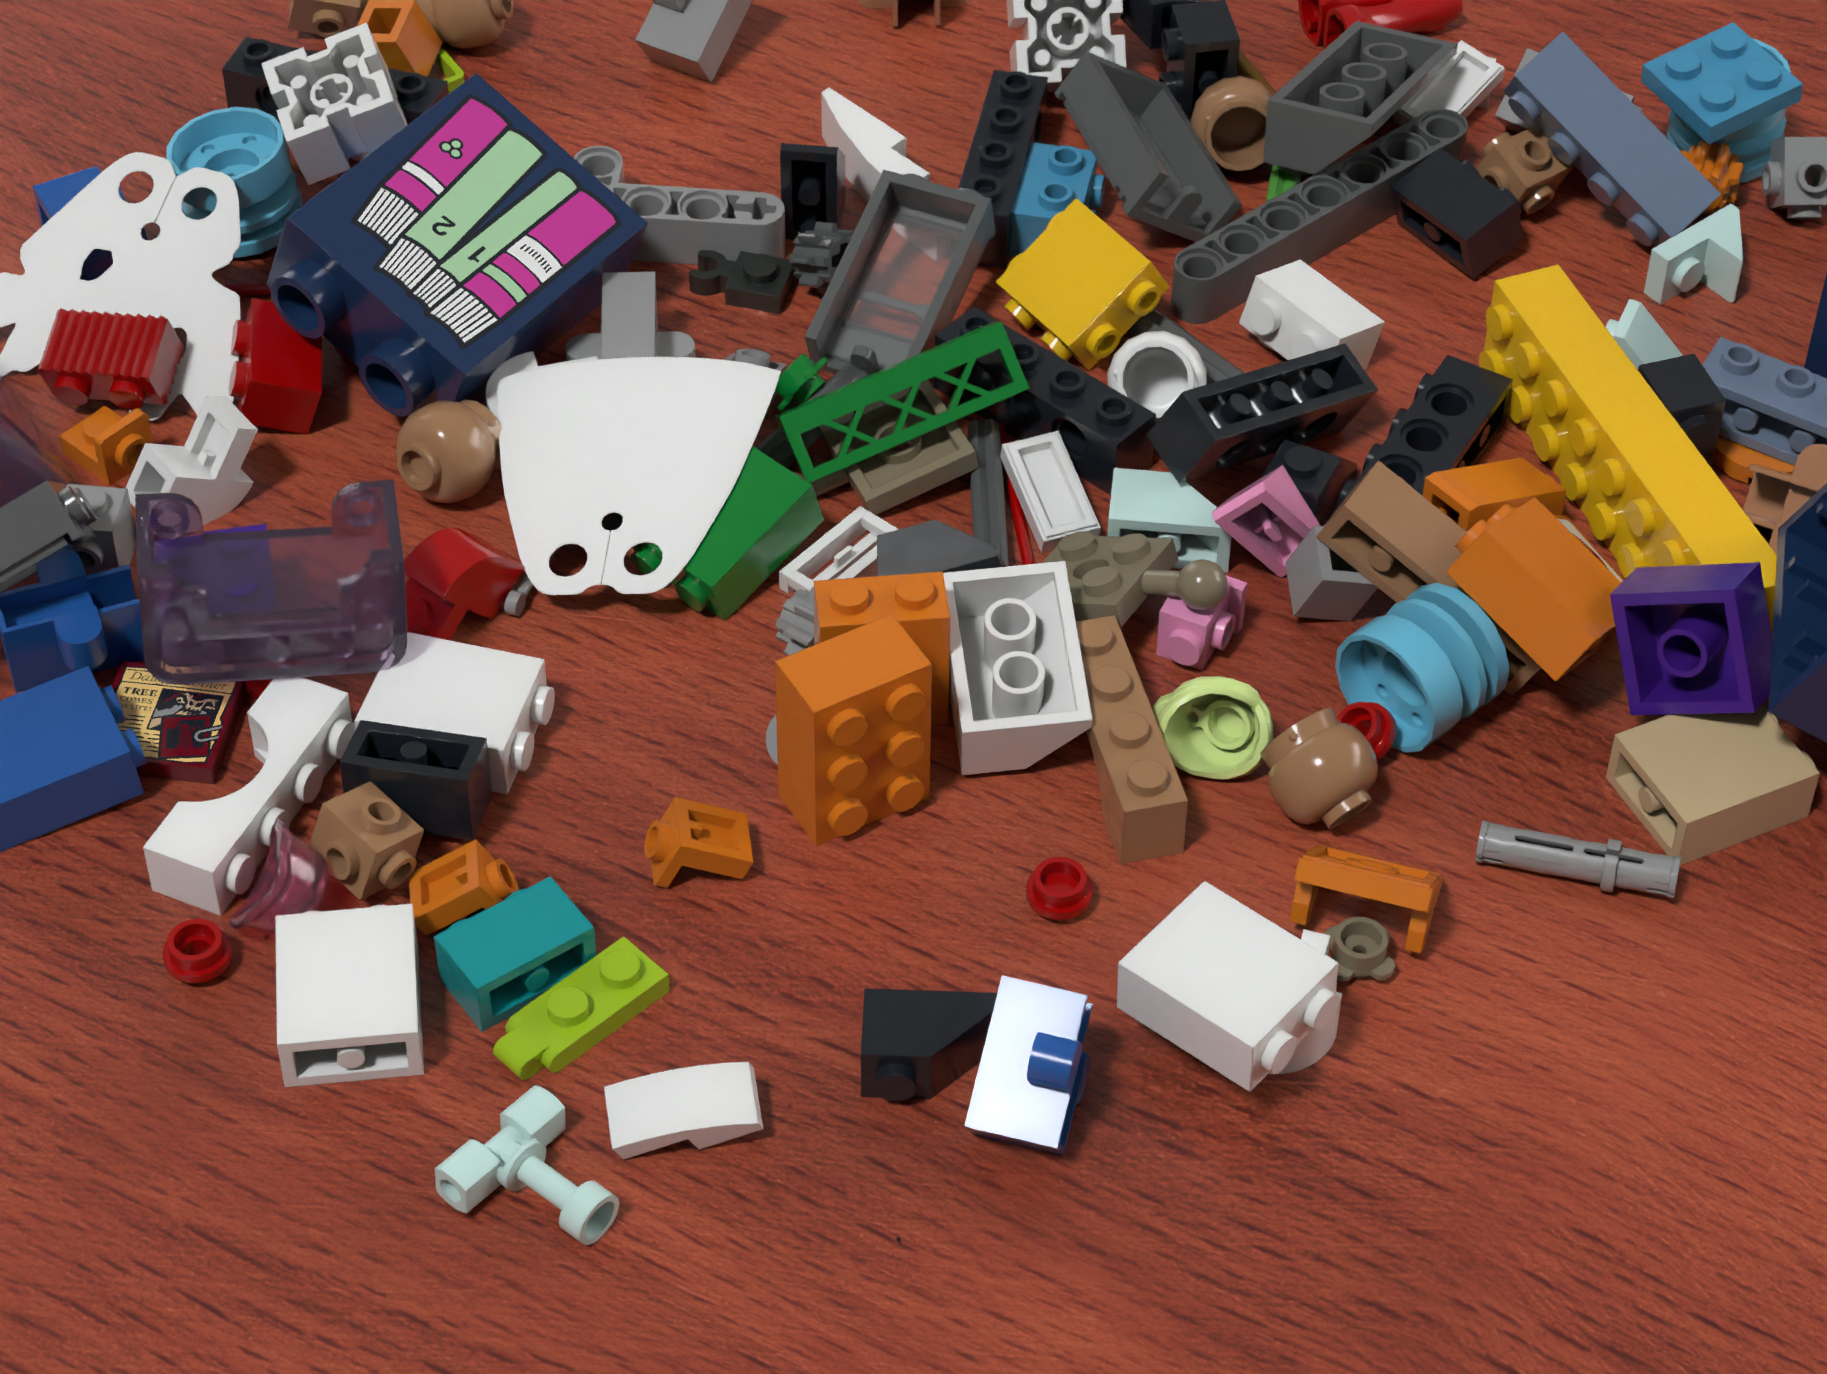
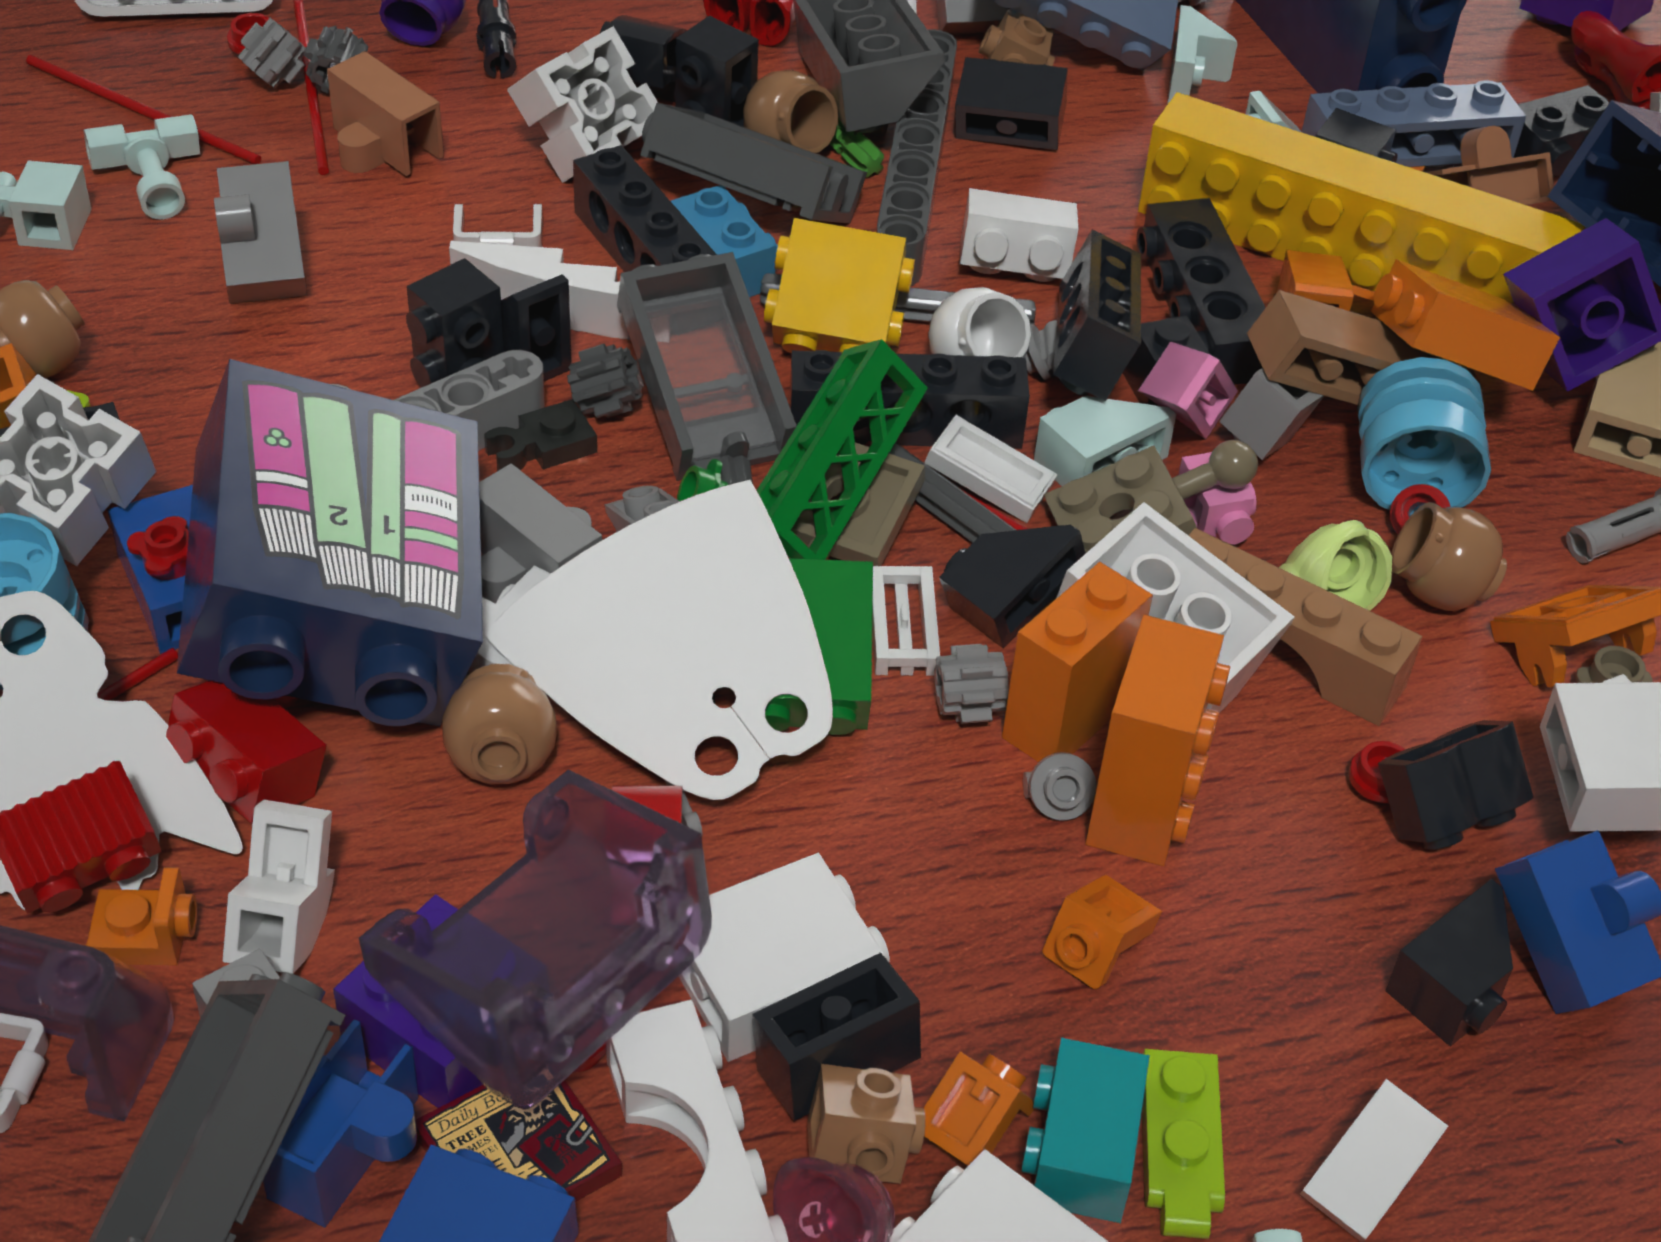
camera: 45 degrees left, 0 degrees up
(743, 144) = (453, 321): none -> black brick
(901, 116) = (508, 238): none -> white piece
(1080, 920) = (1456, 782): none -> black brick

